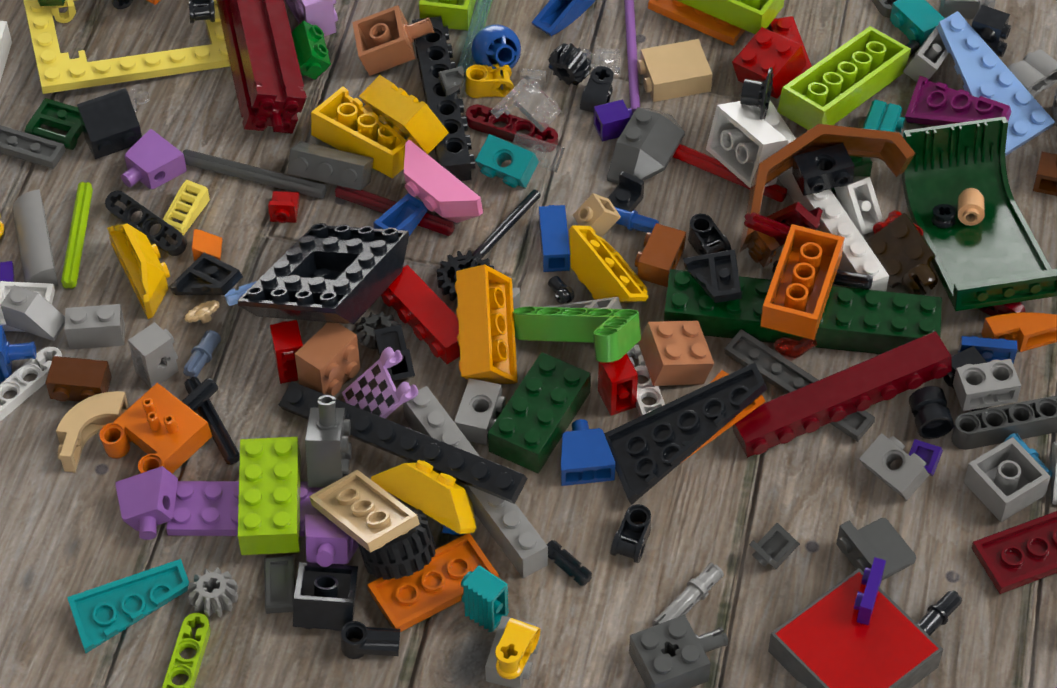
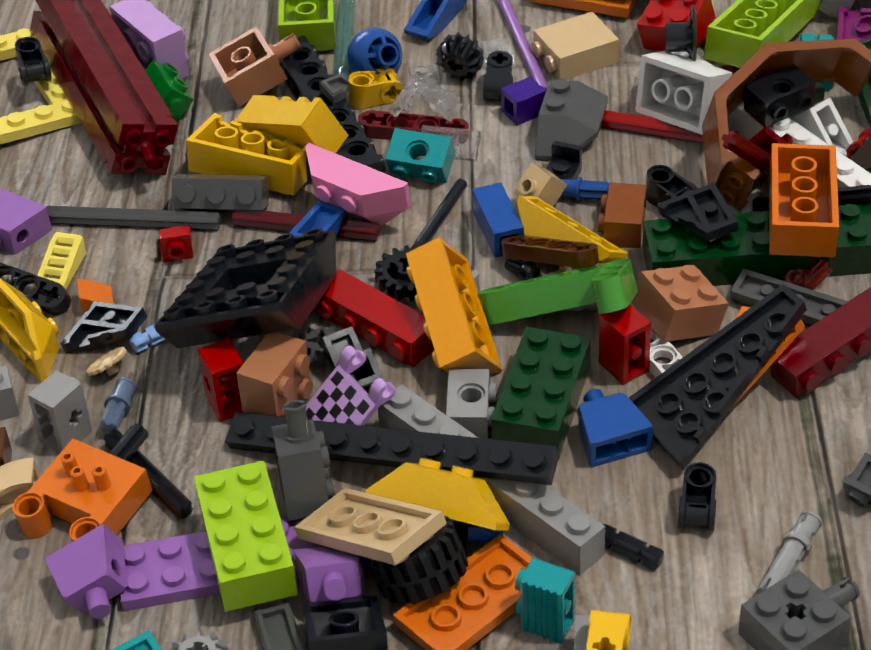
camera: 10 degrees left, 10 degrees down
(582, 284) = (550, 251): none -> reddish brown beam

